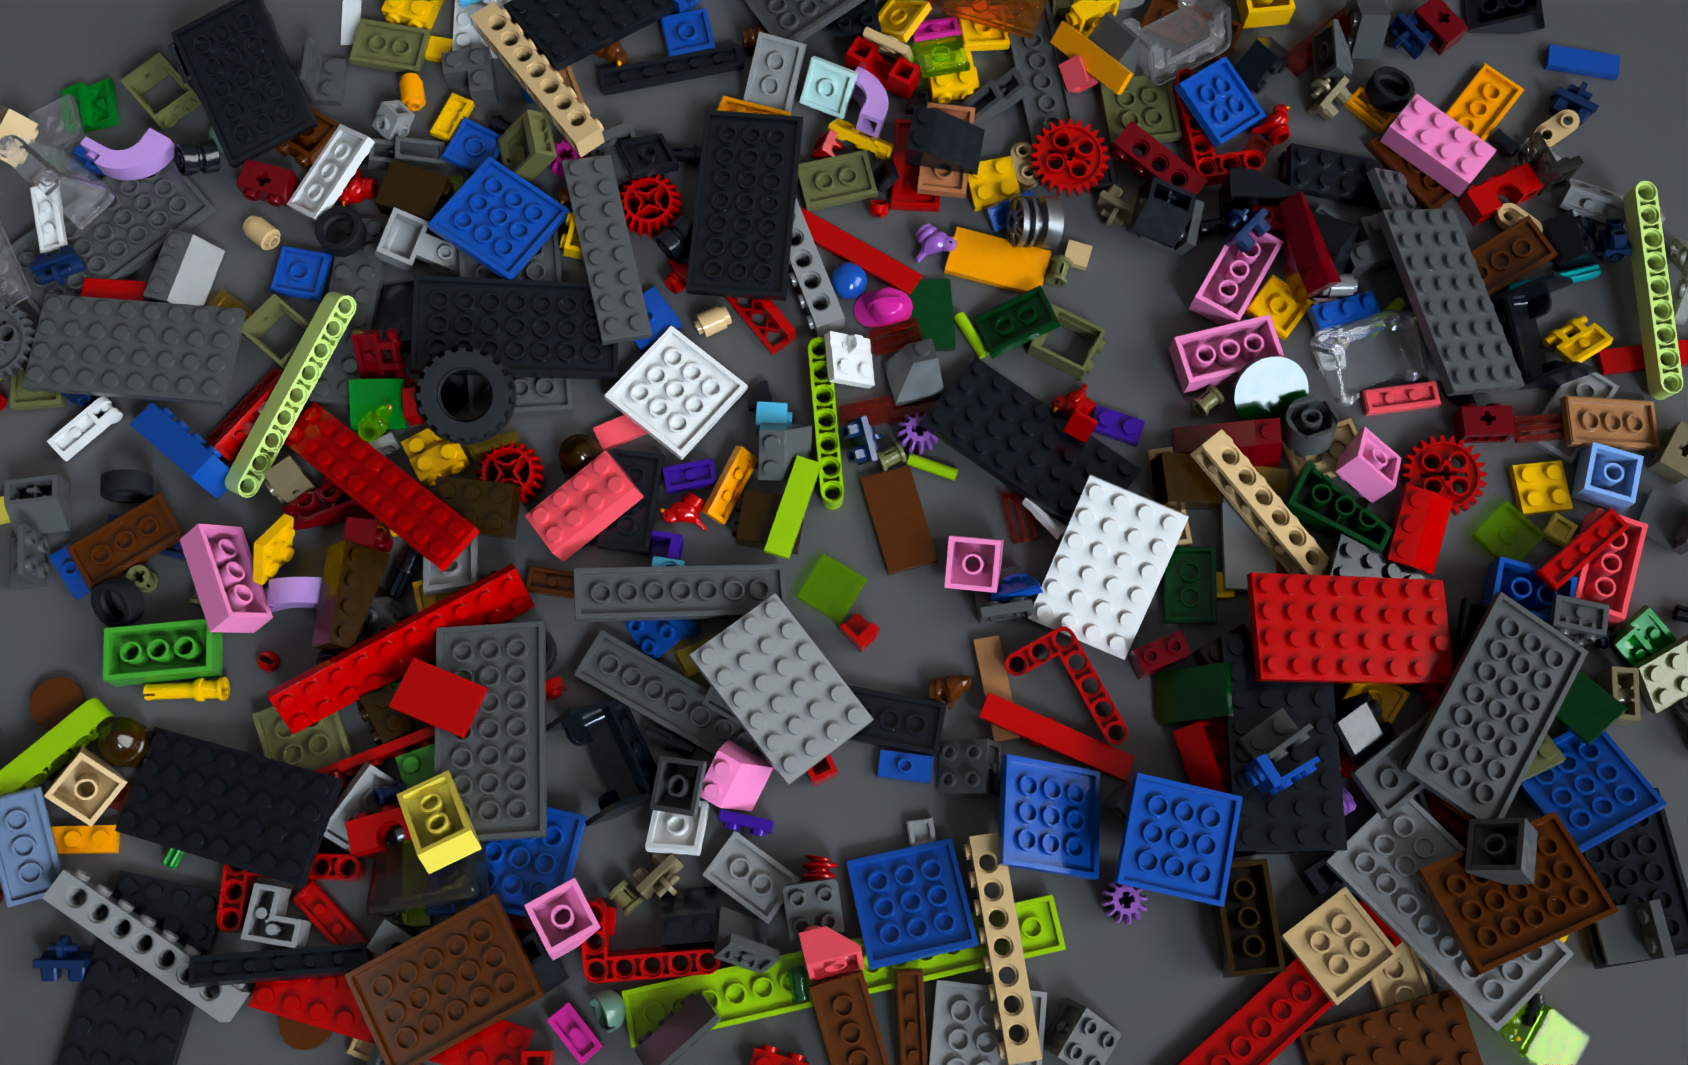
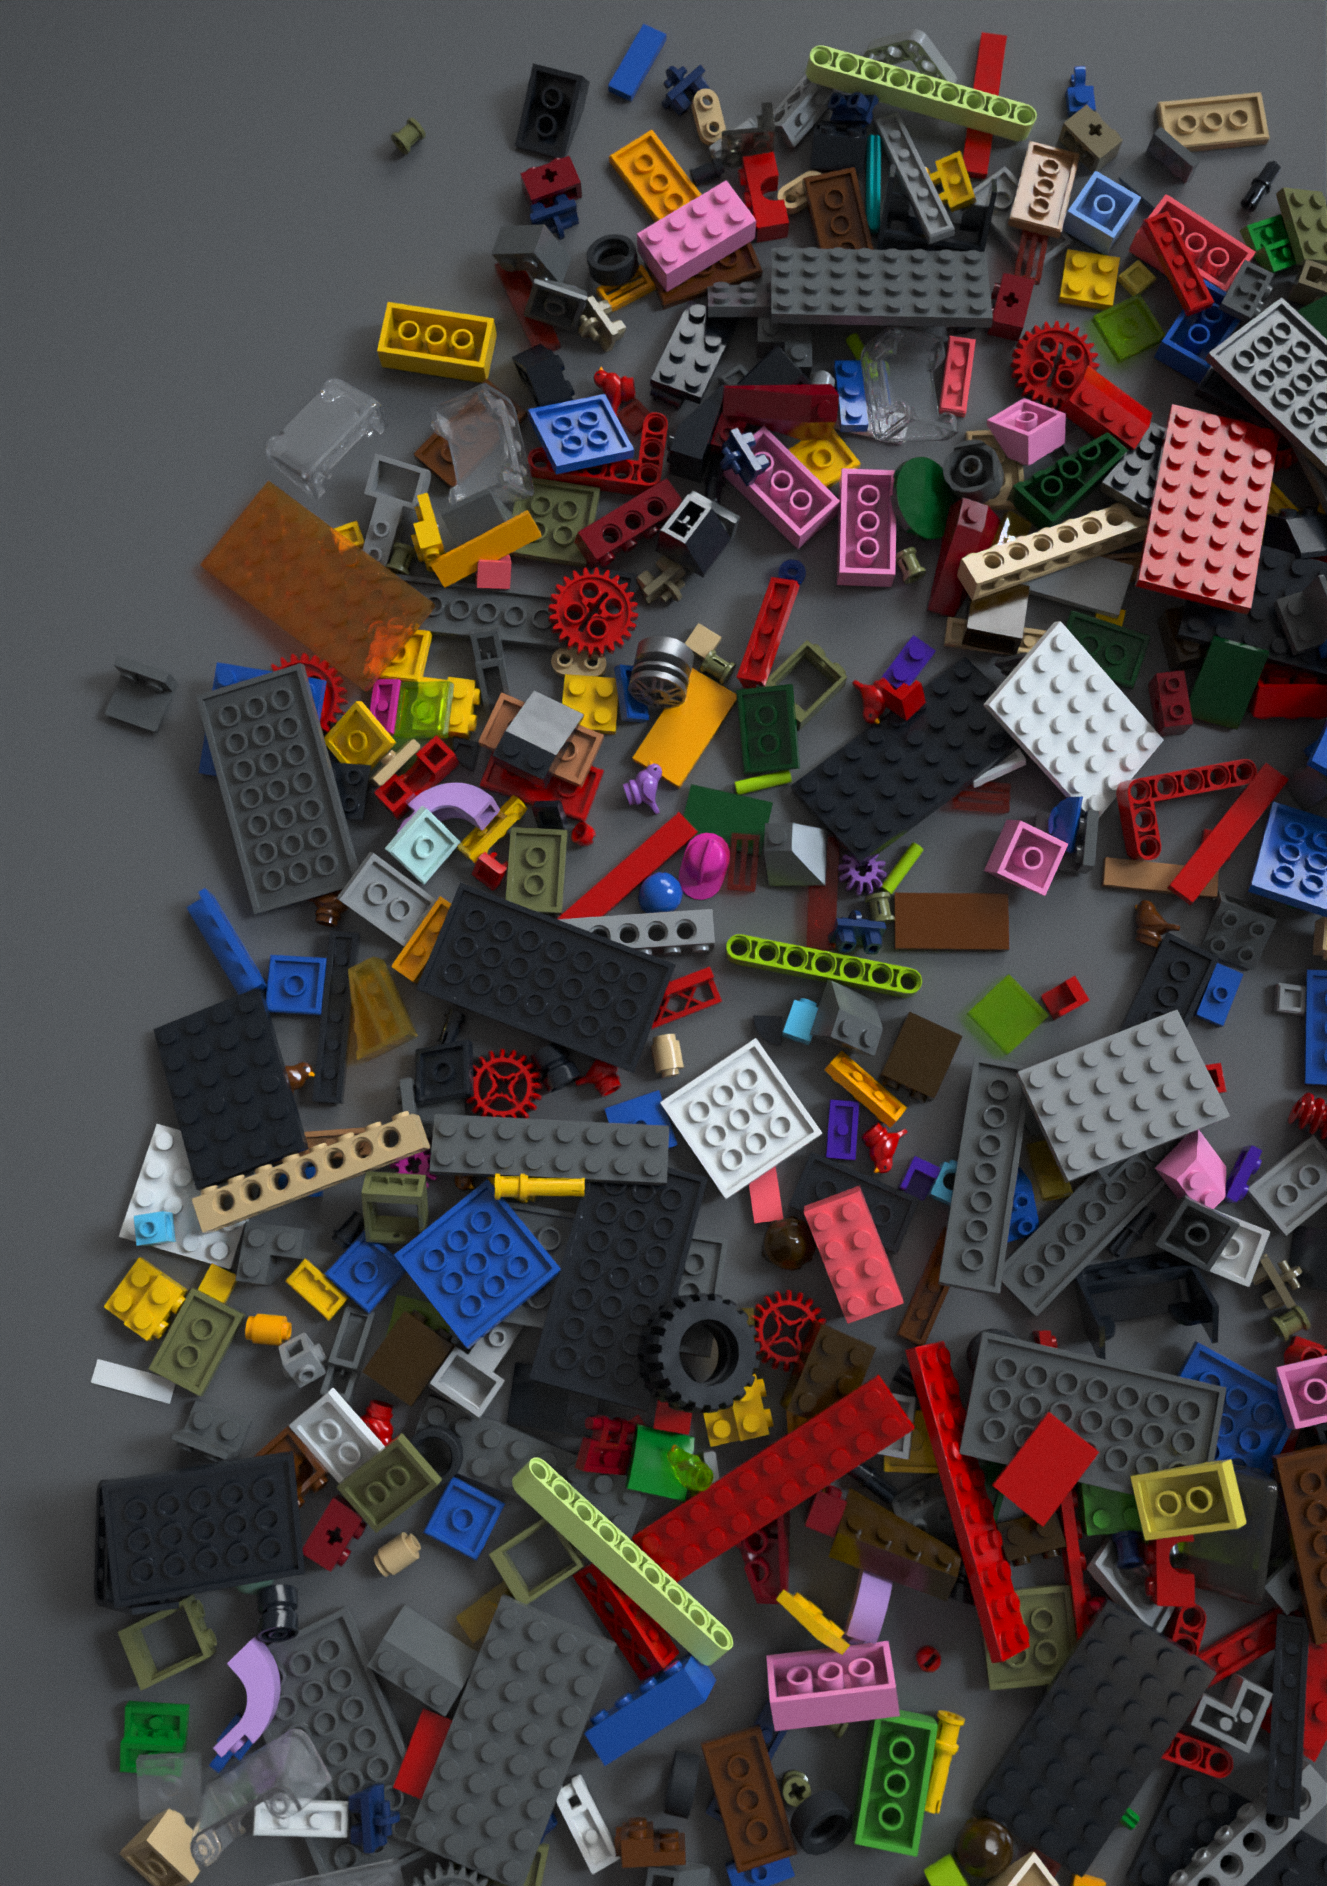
camera: 70 degrees left, 5 degrees up
(75, 473) = (643, 1848): none -> reddish brown plate
(288, 480) = (732, 1586): dark tan brick -> none
(310, 201) = (389, 1483): none -> olive plate
(569, 235) = (522, 1186): none -> yellow pin
(685, 94) = (378, 1010): none -> clear yellow wedge
(792, 507) = (919, 1027): lime tile -> none
(849, 359) = (760, 919): white hinge -> none
(1101, 297) = (767, 632): none -> red fence
(1161, 314) = (792, 564): none -> clear blue plate
(1571, 309) = (914, 178): none -> light grey tile

